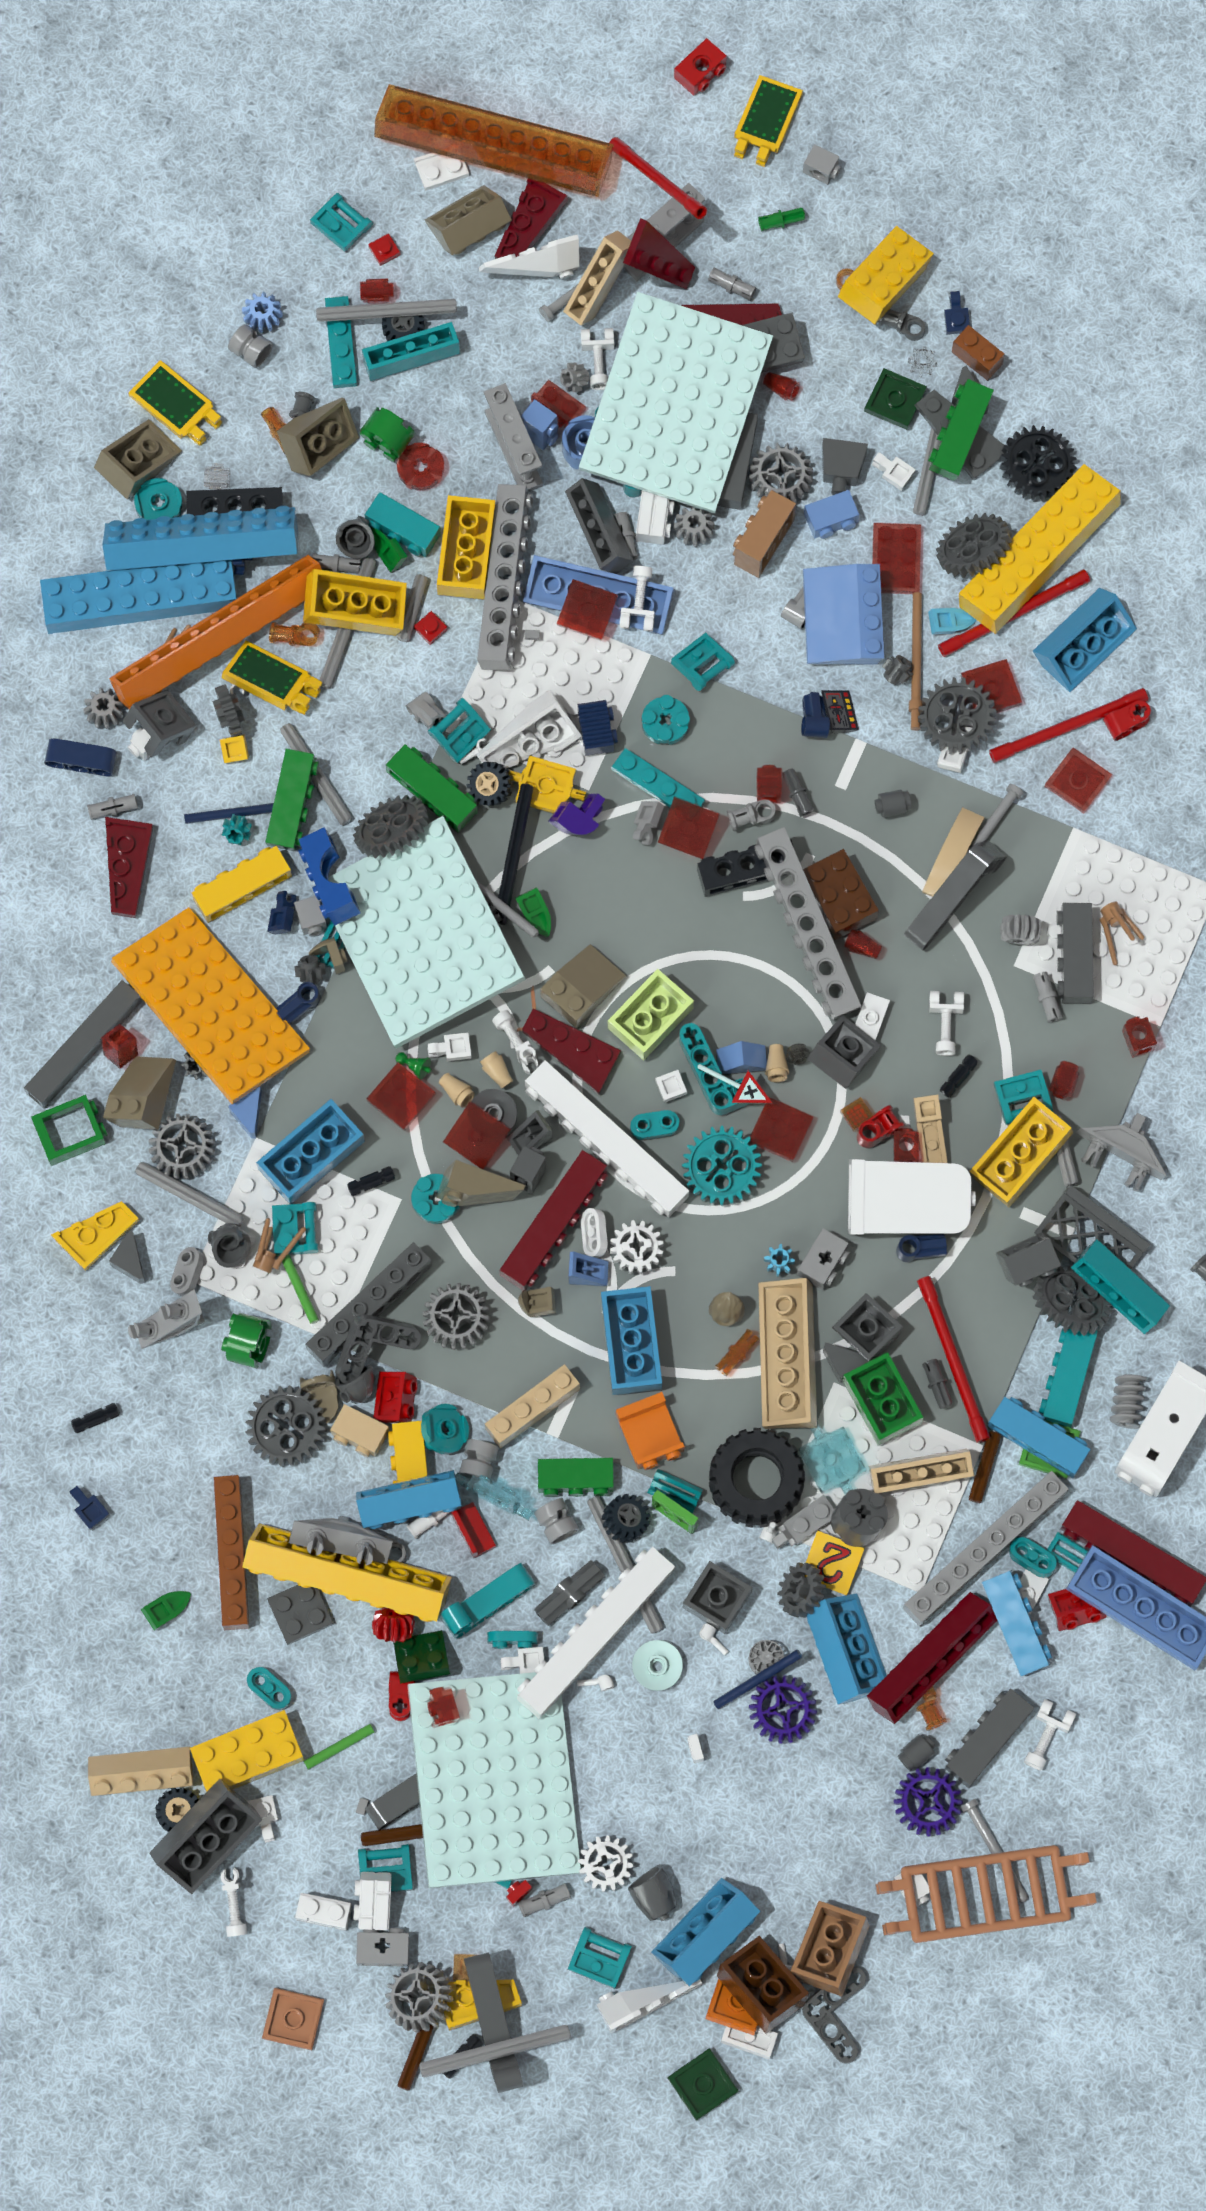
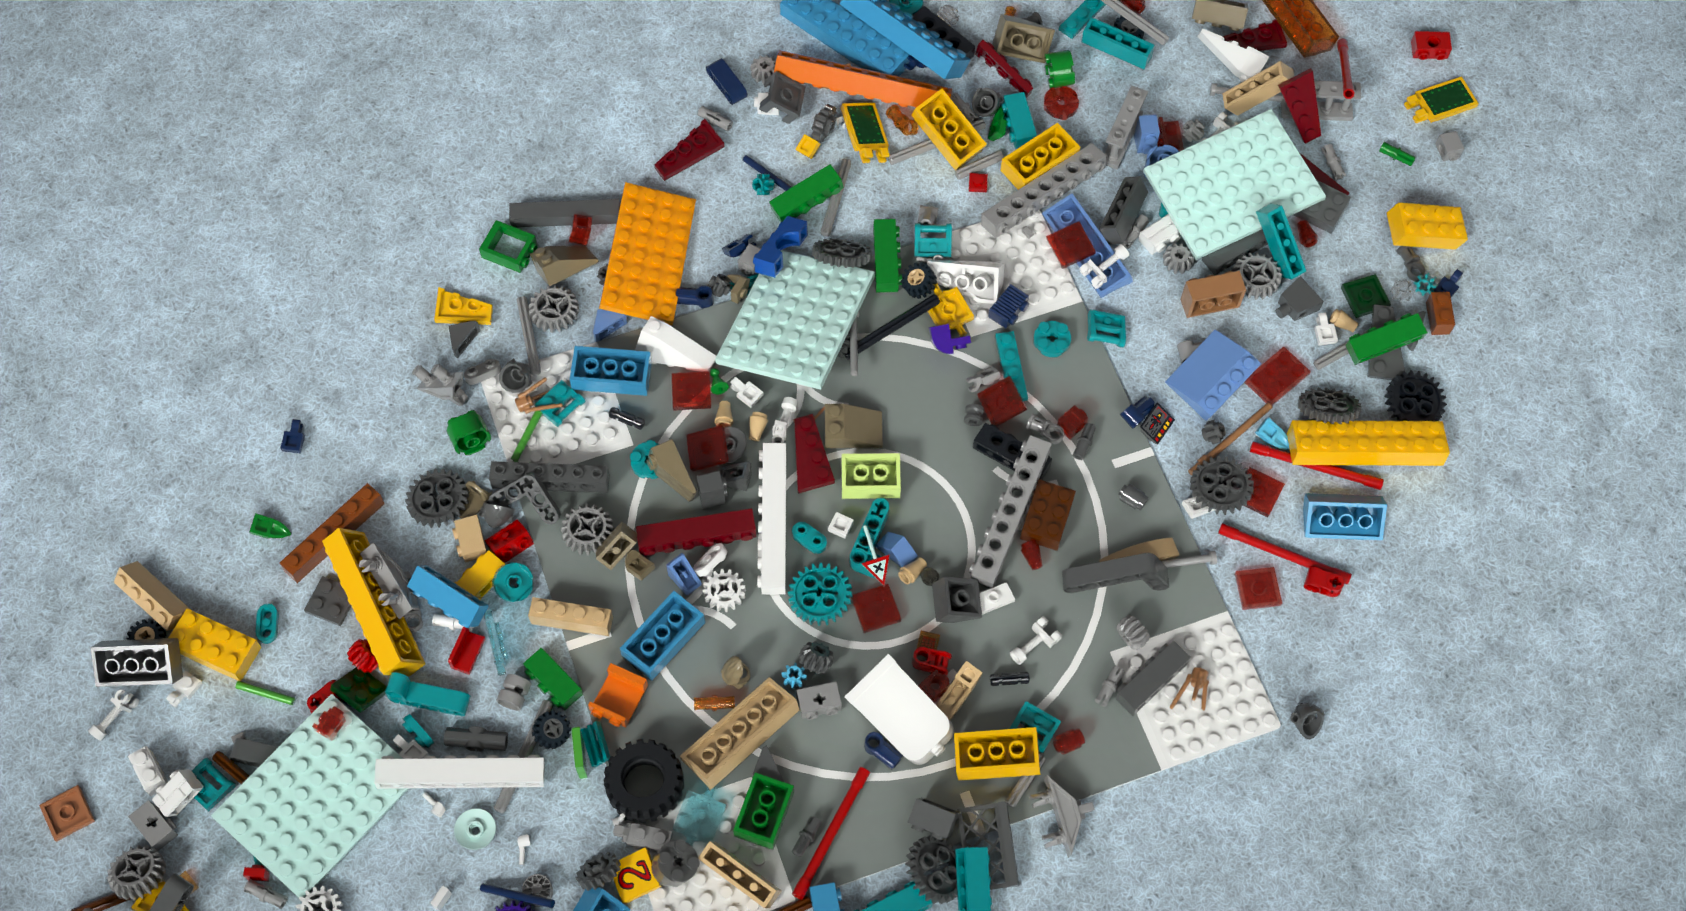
camera: 45 degrees right, 10 degrees down
(95, 1418) = (352, 398): black axle -> none
(241, 884) = (734, 212): yellow brick -> none
(323, 481) = (998, 61): none -> dark red wing
(338, 1073) = (672, 347): none -> white wedge
(479, 1459) = (511, 617): light grey wheel -> none
(504, 1304) = (616, 545): none -> dark tan brick
(535, 910) = (870, 366): green plate -> none
(676, 865) = (974, 415): none -> dark grey wheel
(717, 1597) = (548, 825): dark grey brick -> none
(776, 421) = (1281, 240): none -> teal brick
(782, 1224) = (816, 657): none -> dark grey gear
(831, 515) = (1263, 320): medium blue brick -> none
(868, 1327) = (798, 762): dark grey slope -> none
(899, 444) = (1342, 320): none -> tan cone
(937, 335) = (1424, 289): none -> teal gear
(1136, 1046) = (1137, 768): clear red brick -> none

